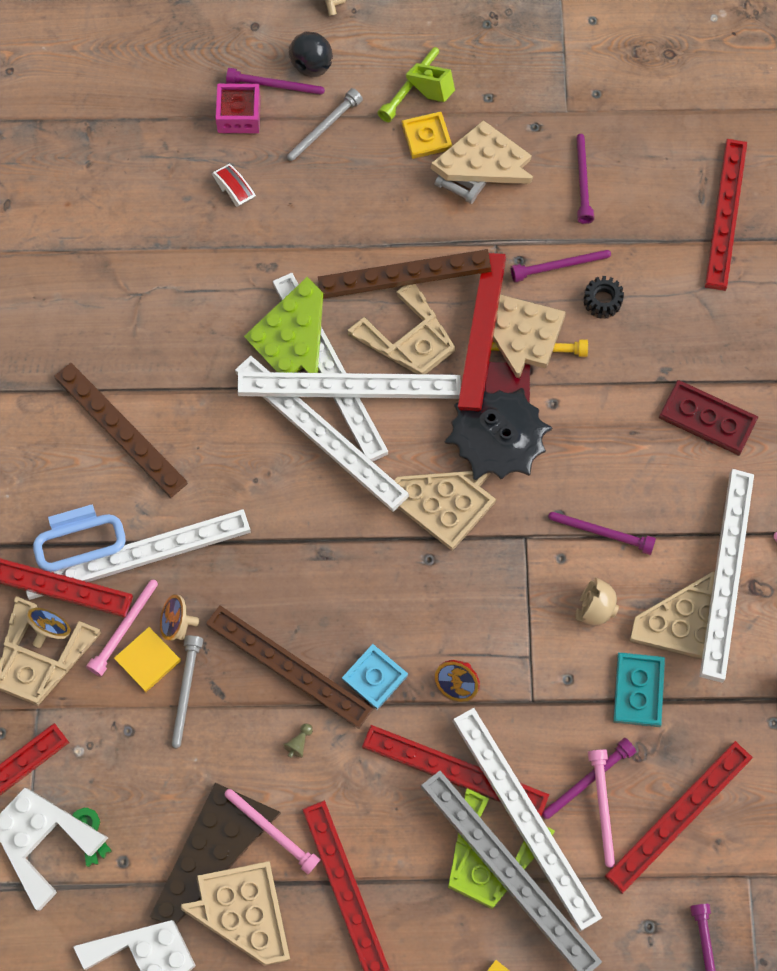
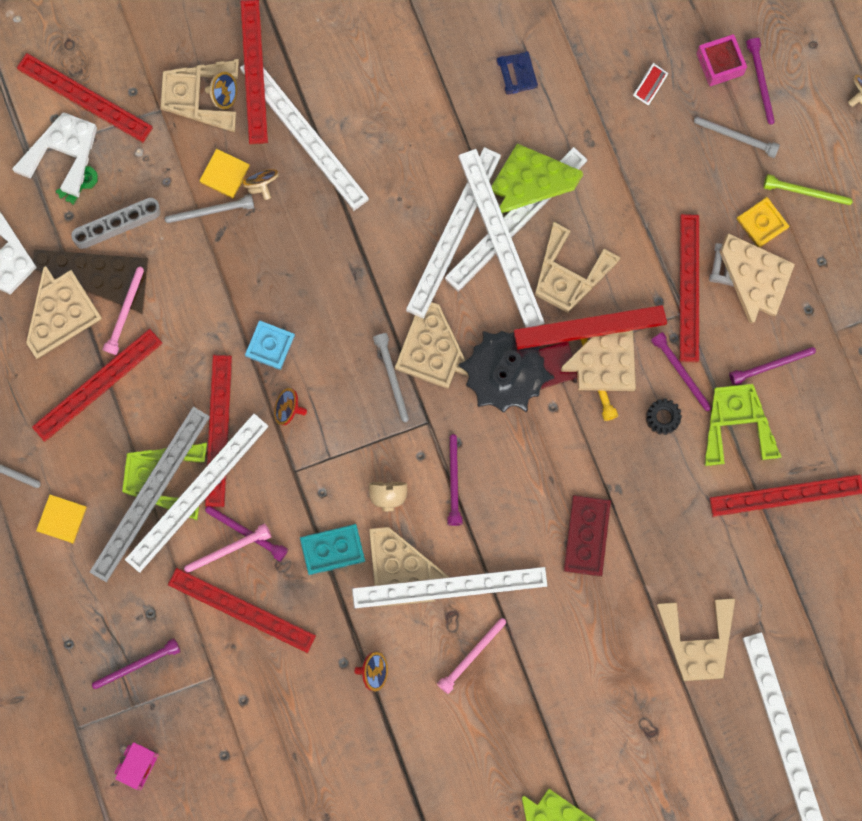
camera: 65 degrees right, 10 degrees up
(72, 522) = (311, 77): light blue bar -> none
(99, 663) = (207, 140): bright pink piece -> none
(121, 430) = (402, 81): reddish brown plate -> none
(154, 793) = (111, 231): none -> light grey beam
(165, 304) = (523, 72): none -> clear blue plate
(289, 667) = (255, 279): reddish brown plate -> none
(296, 744) = (197, 307): olive piece -> none
(310, 54) = (798, 99): black piece -> none
(404, 274) = (619, 248): reddish brown plate -> none
(417, 553) = (382, 342): none -> light grey piece
(432, 81) = (812, 207): lime slope -> none
(471, 226) = (689, 289): none -> red tile
(617, 225) = (737, 406): none -> lime wing

